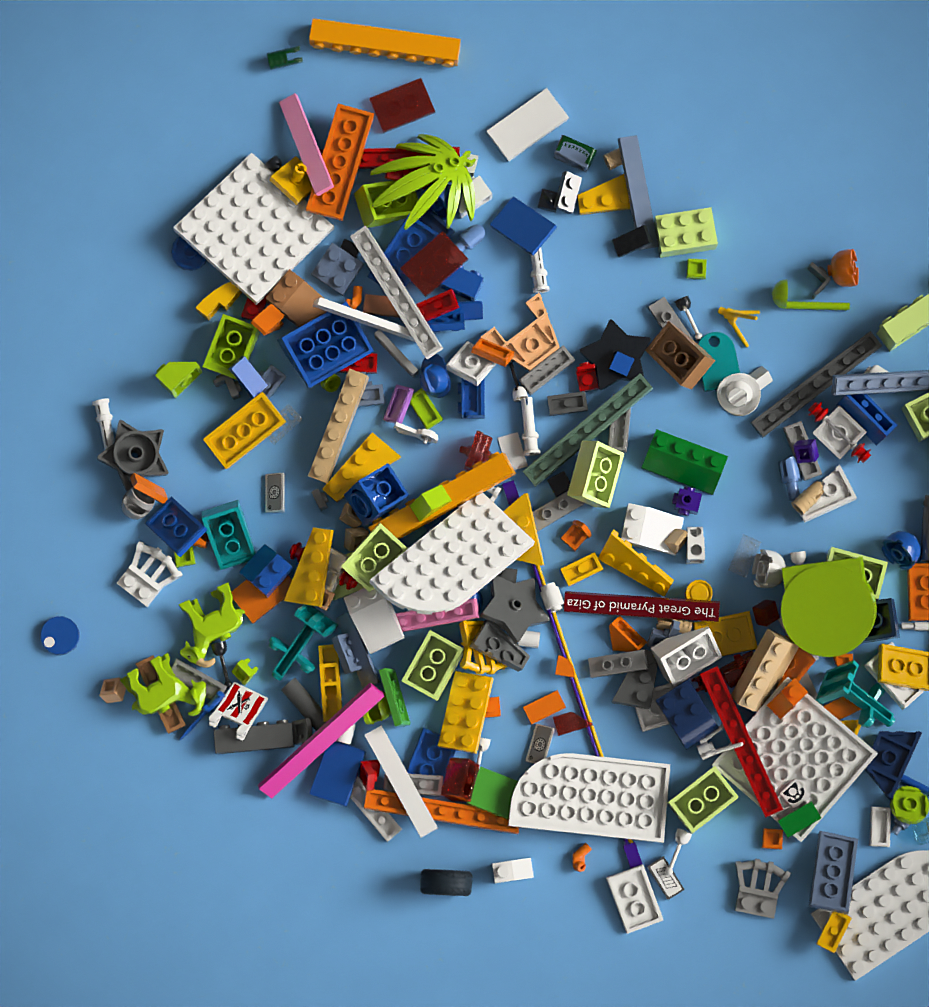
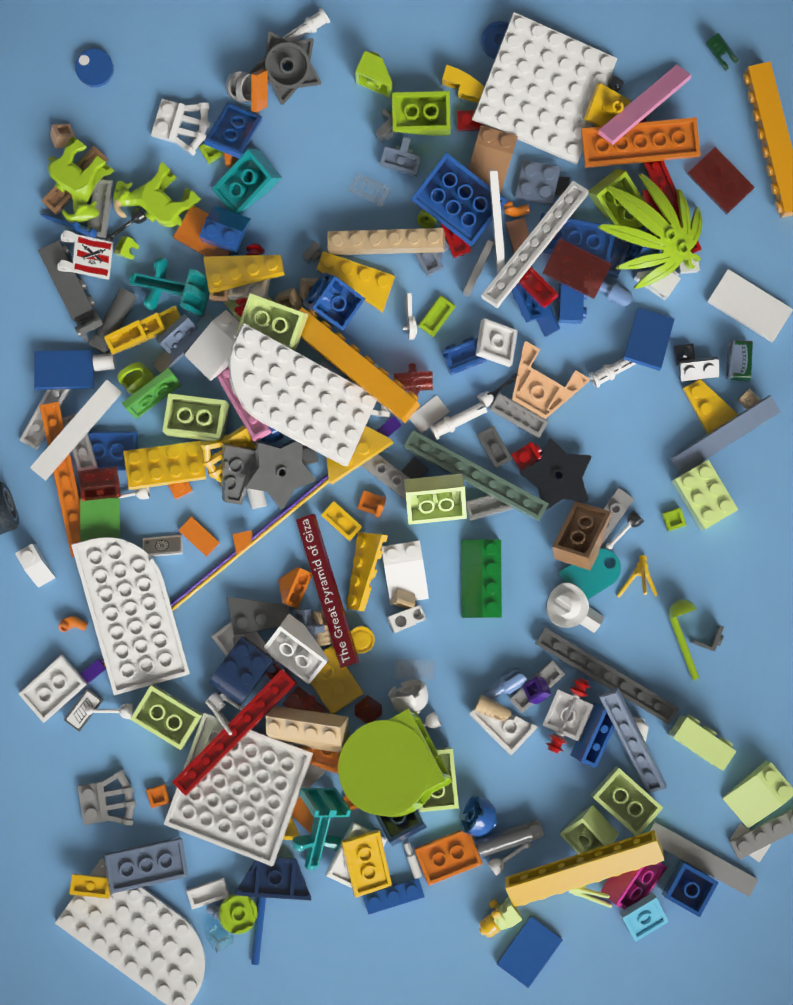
camera: 65 degrees right, 5 degrees up
(244, 430) = (349, 157): yellow plate -> none
(248, 376) = (399, 138): tile -> none
(268, 320) = (460, 136): orange slope -> none
(275, 493) = (303, 209): slope -> none
(320, 740) = (85, 341): dark pink tile -> none
(369, 772) = (74, 397): red bracket -> none
(398, 404) = (430, 290): medium lavender tile -> none
(430, 502) = (345, 353): lime slope -> none
(435, 377) = (469, 312): blue piece -> none
(492, 352) = (514, 357): orange tile -> none
(551, 597) = (302, 503): white brick -> none
(570, 722) = (193, 566): clear red tile -> none
(618, 663) = (265, 589): light grey plate -> none
(621, 363) = (551, 482): blue tile -> none
(632, 241) = (675, 447): black tile -> none
(687, 494) = (446, 602): dark purple brick -> none
(787, 698) = (290, 760): orange slope -> none
(794, 793) = (205, 801): white sticker -> none
(799, 819) = (183, 814): green tile -> none
(844, 268) = (730, 660): orange cylinder -> none

